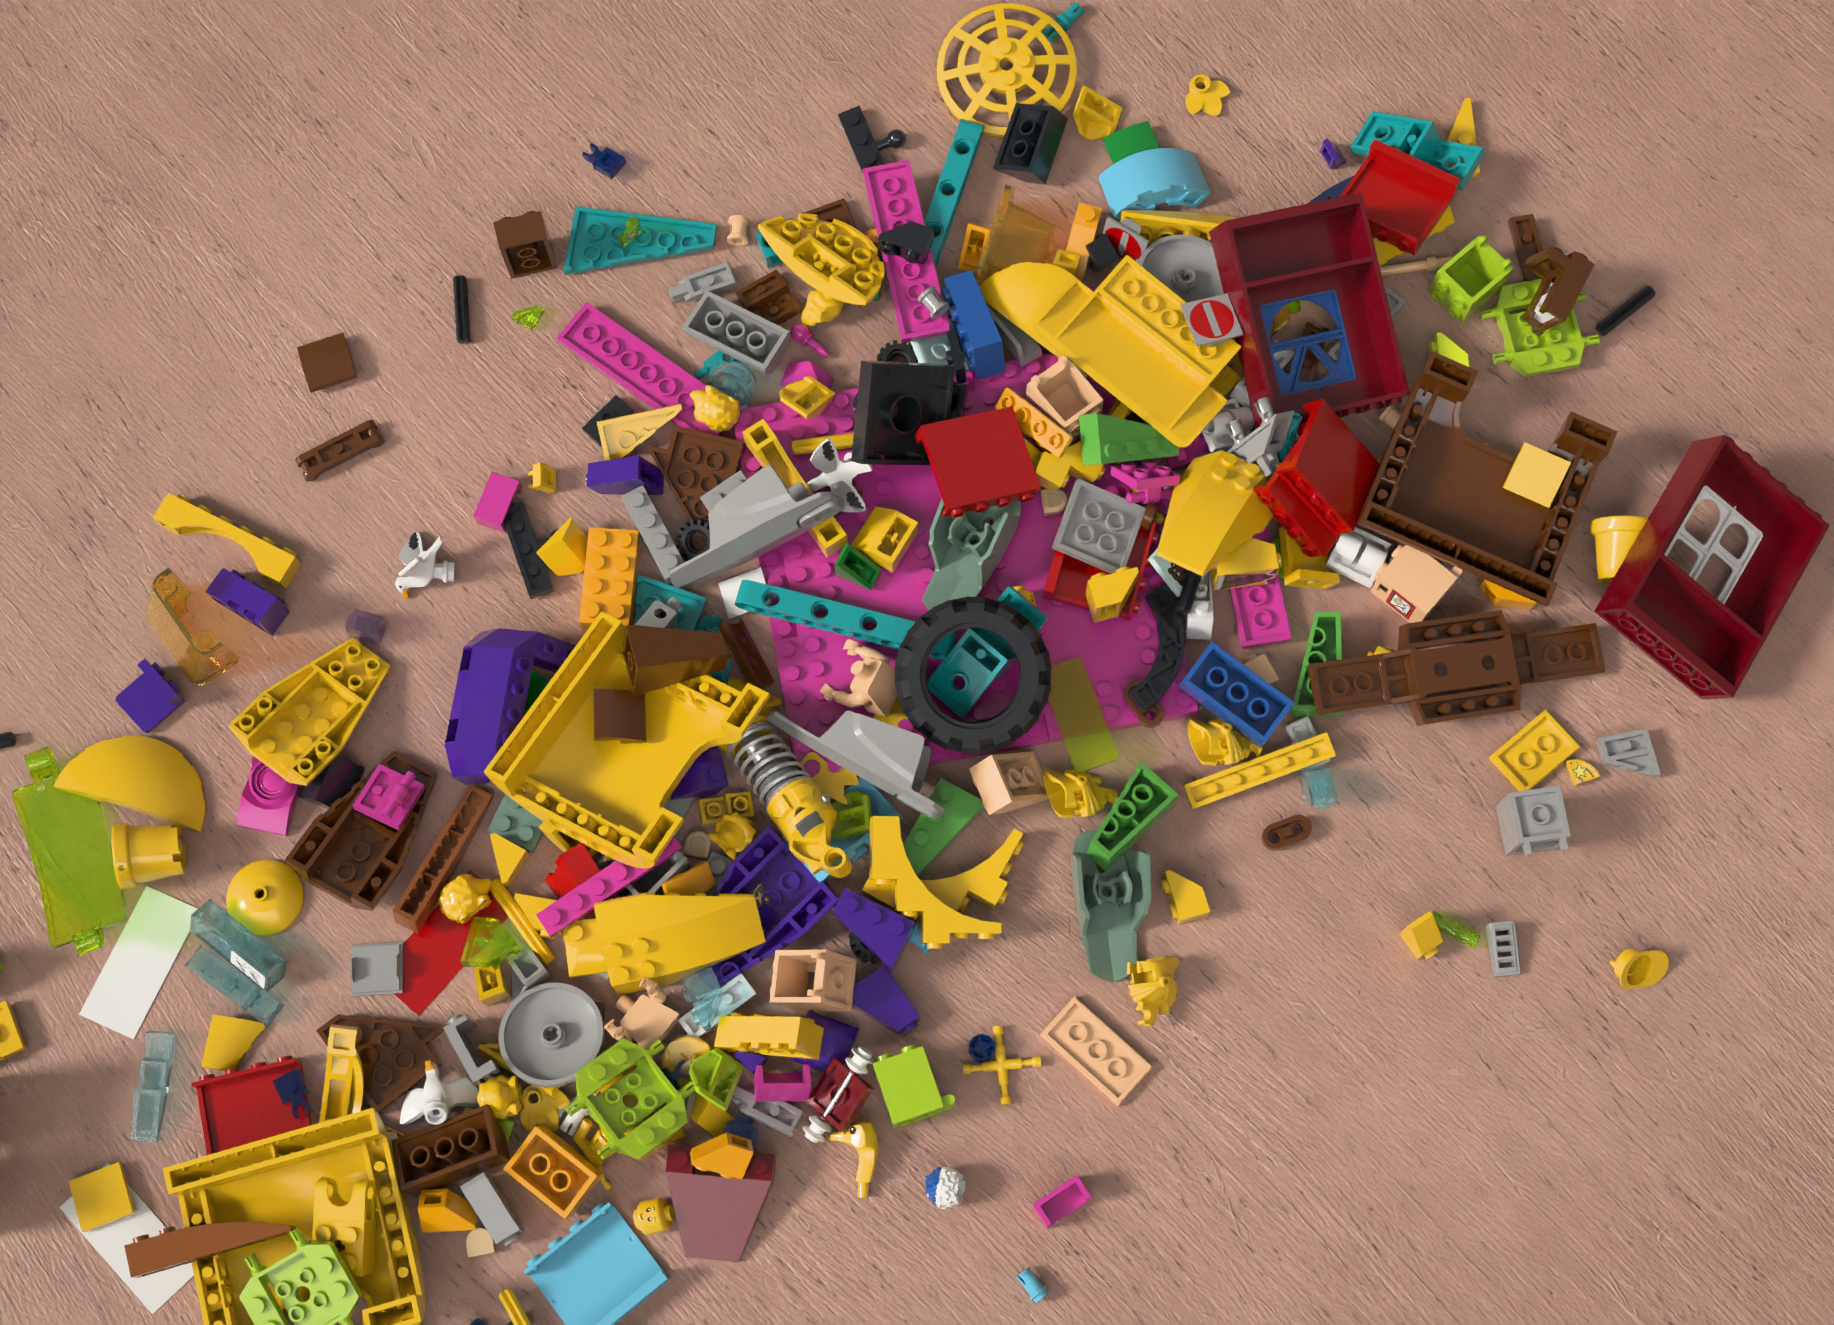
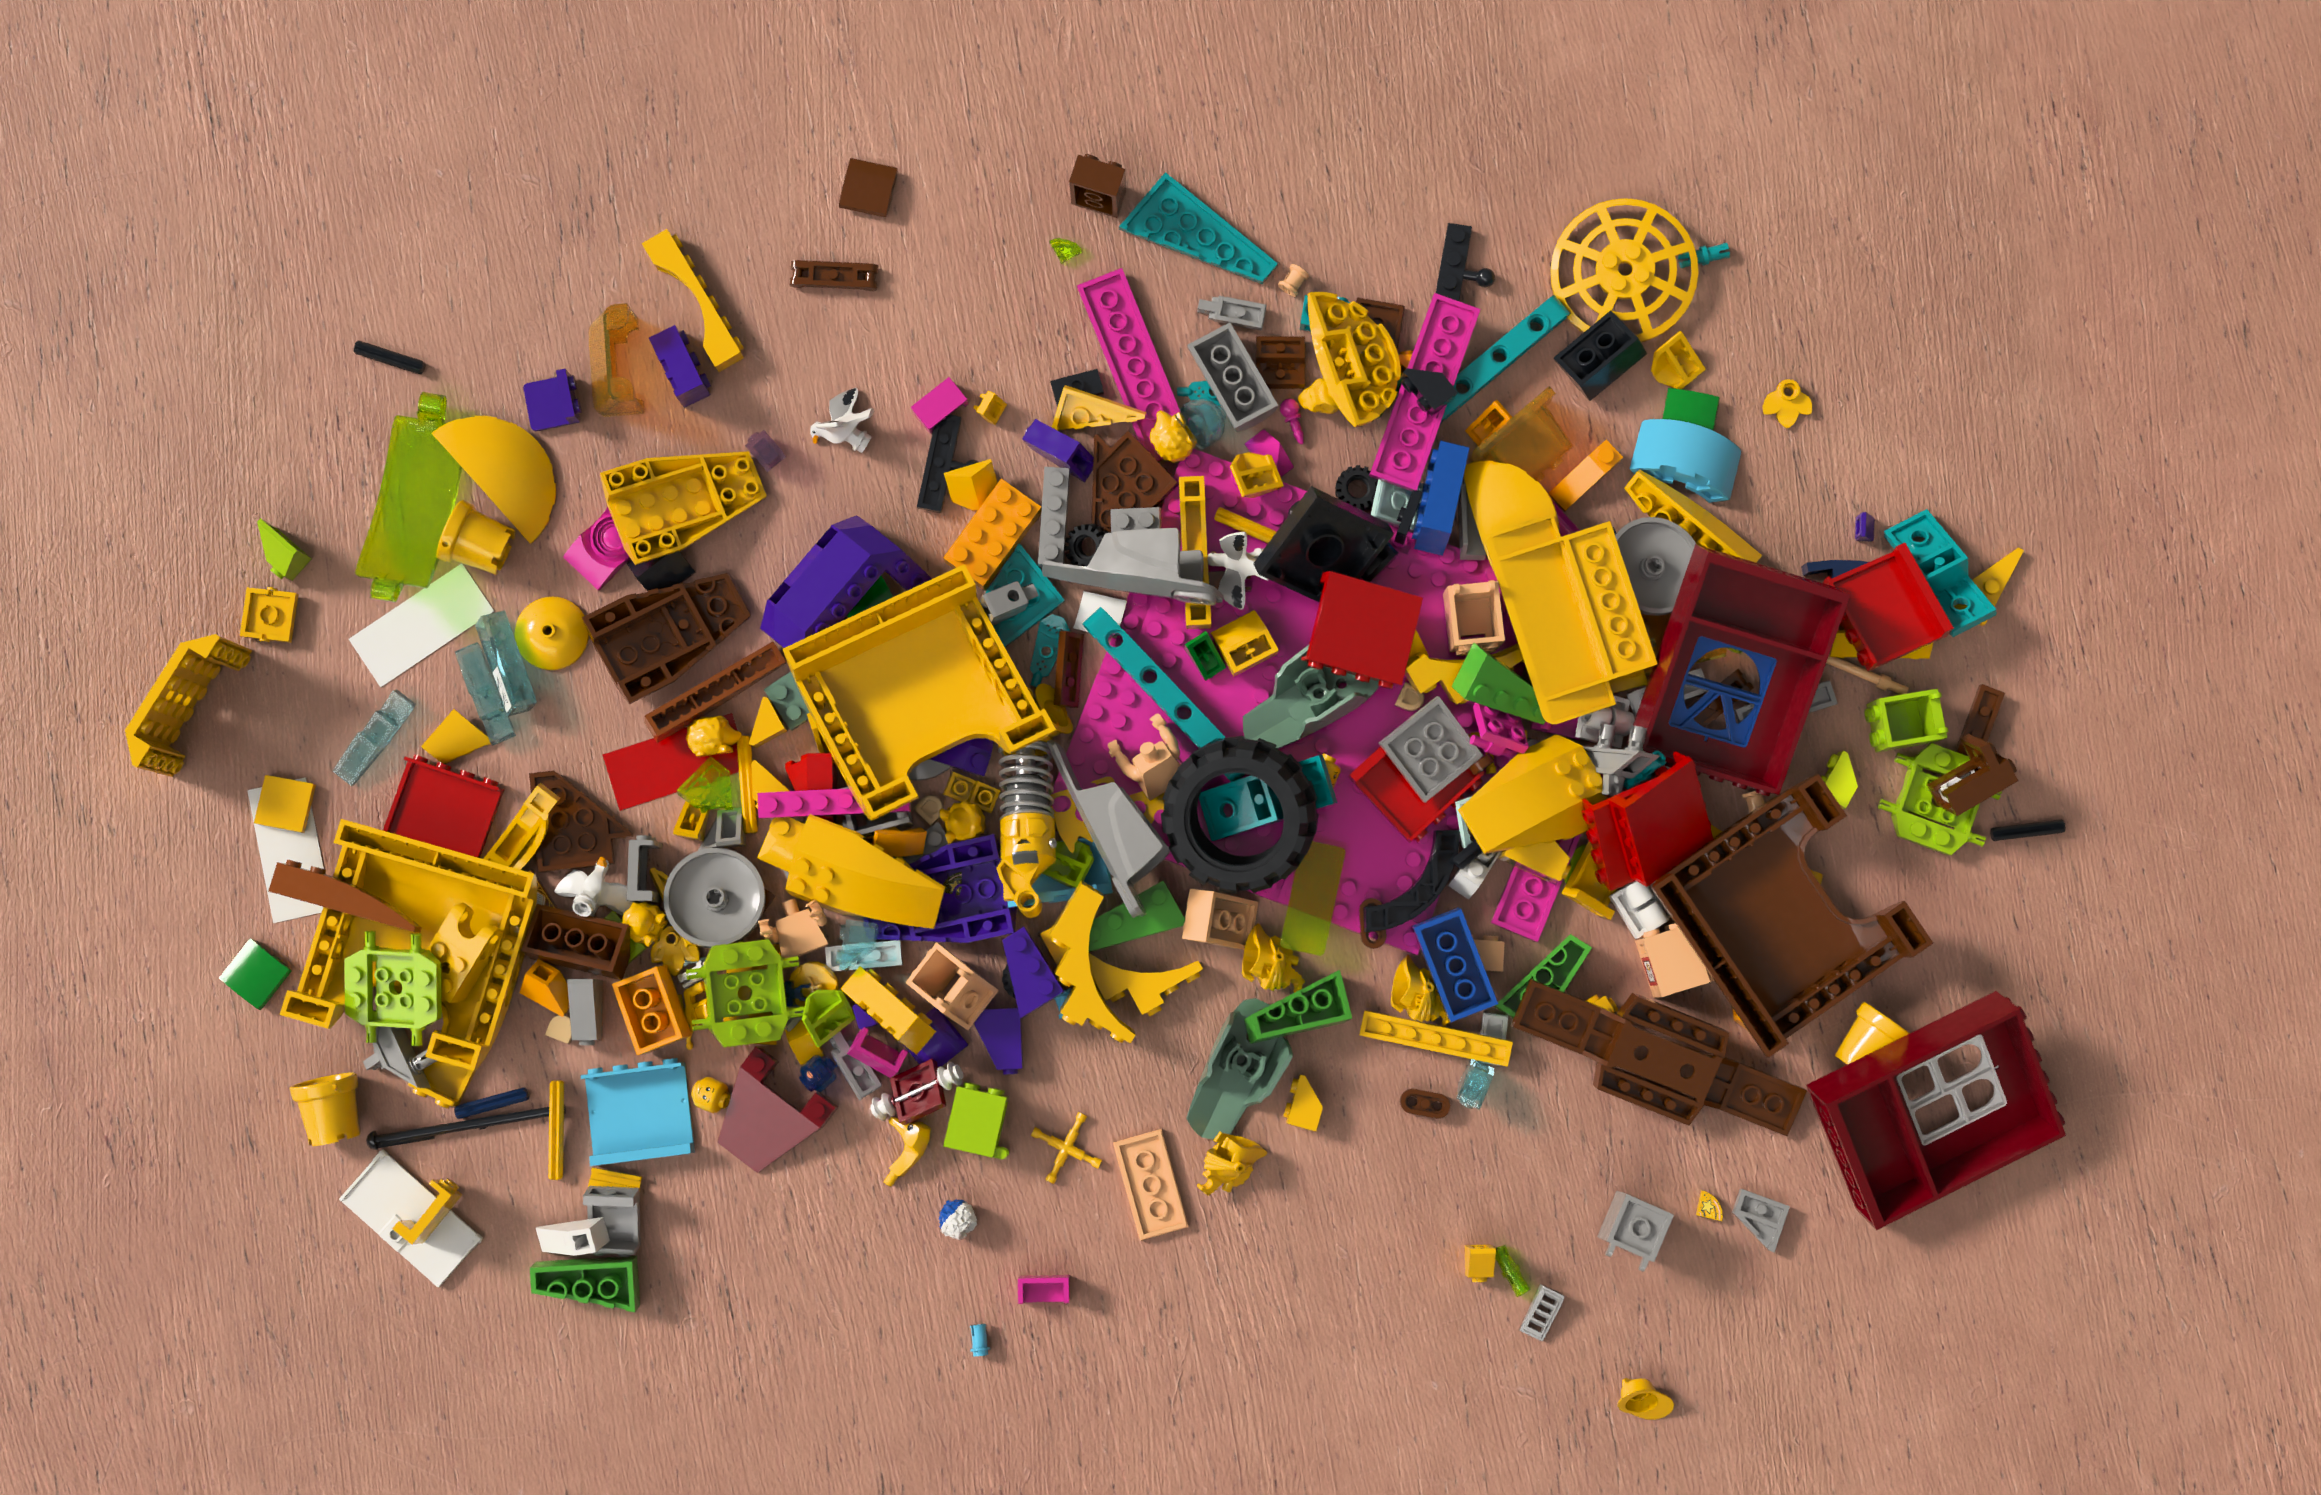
camera: 30 degrees right, 10 degrees up
(292, 1088) = (482, 809): clear blue plate -> none
(376, 969) = (608, 750): light grey piece -> none
(389, 796) = (698, 613): dark pink plate -> none
(461, 309) = (1011, 208): black axle -> none
(605, 162) = (1217, 145): clear blue plate -> none
(619, 716) = (926, 665): reddish brown slope -> none
(633, 229) = (1200, 226): clear neon green tile -> none
(670, 656) = (997, 641): reddish brown slope -> none
(723, 1154) = (793, 1084): light orange slope -> none
(933, 302) = (1416, 458): light grey bush -> none
(981, 1043) = (1058, 1124): clear blue wheel -> none
(1036, 424) = (1434, 623): light orange bracket -> none
(1067, 261) = (1559, 487): yellow tile -> none
(1101, 253) = (1596, 496): black panel -> none
(1110, 592) = (1402, 814): yellow slope -> none
(1125, 238) = (1624, 498): piece -> none
(1211, 320) = (1645, 626): piece -> none
(1534, 752) = (1680, 1165): yellow tile -> none
(1536, 474) = (1842, 932): yellow tile -> none

